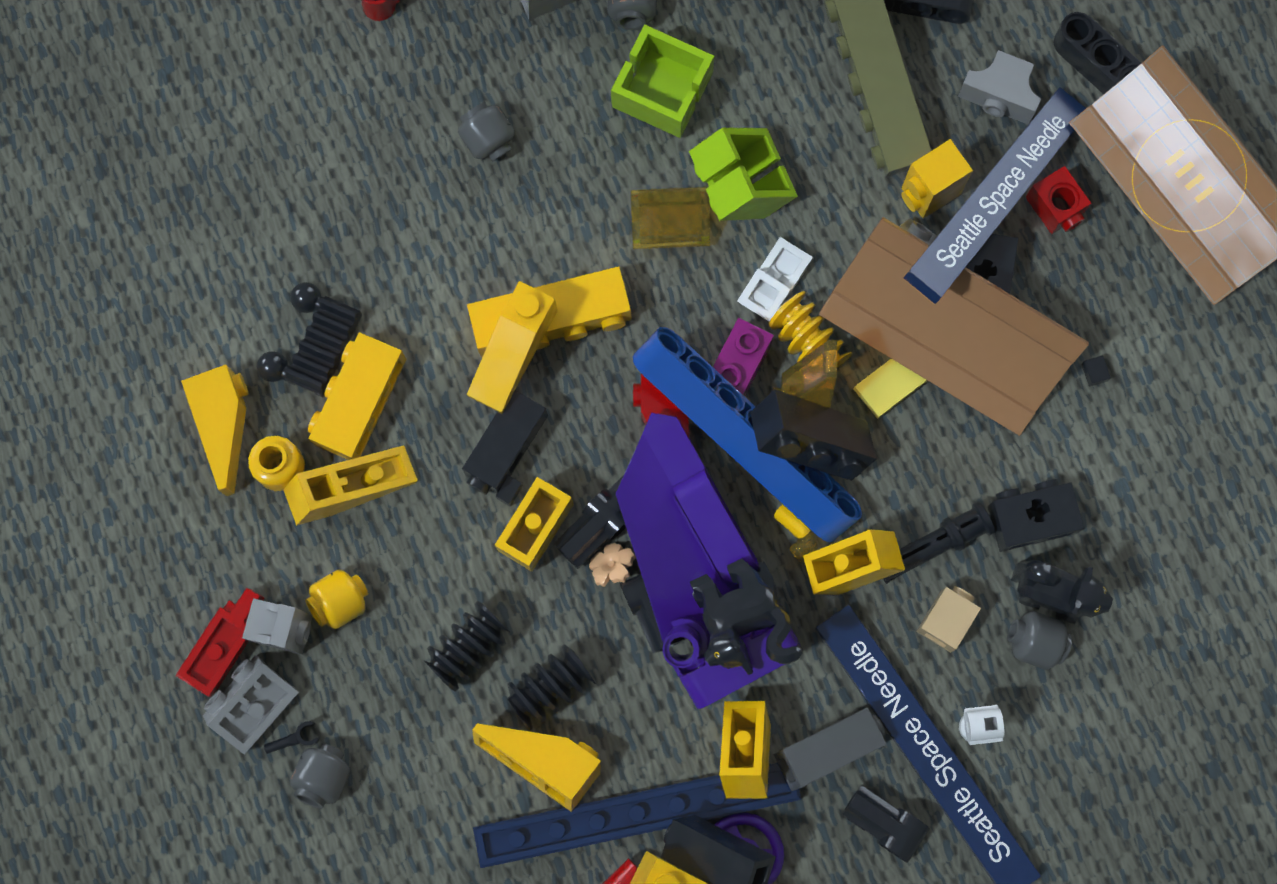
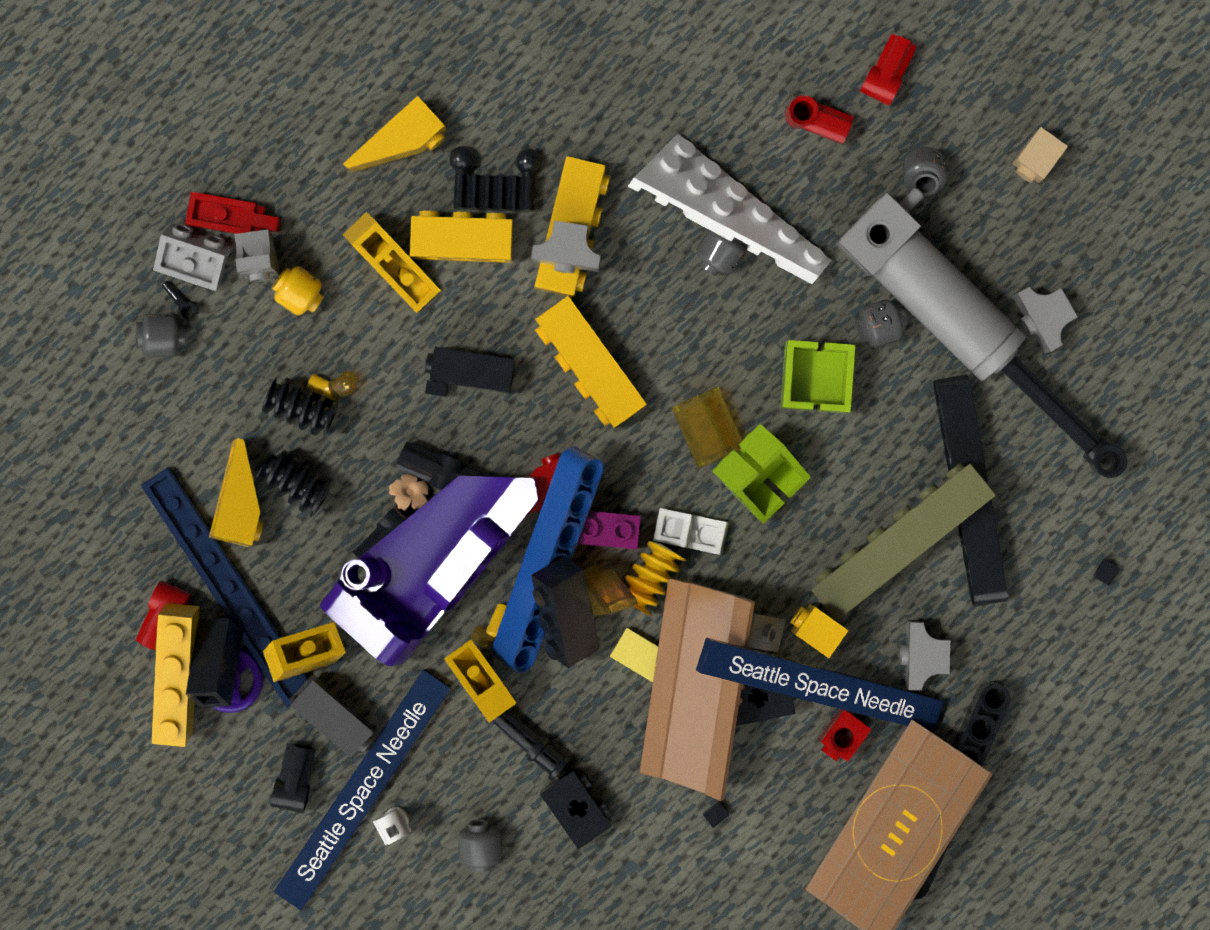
camera: 70 degrees right, 10 degrees up
(274, 452) = (377, 188): yellow head -> none
(395, 277) = (574, 204): none -> yellow brick
(416, 280) = (567, 249): none -> light grey brick
(445, 104) = (724, 206): none -> white wing
(463, 600) = (336, 388): none -> clear yellow arm
(512, 346) = (543, 347): yellow slope -> none
(534, 524) = (414, 420): yellow brick -> none
(741, 612) = (401, 609): black animal -> none
(949, 618) = (469, 770): tan brick -> none
(1061, 591) = (519, 848): black animal -> none

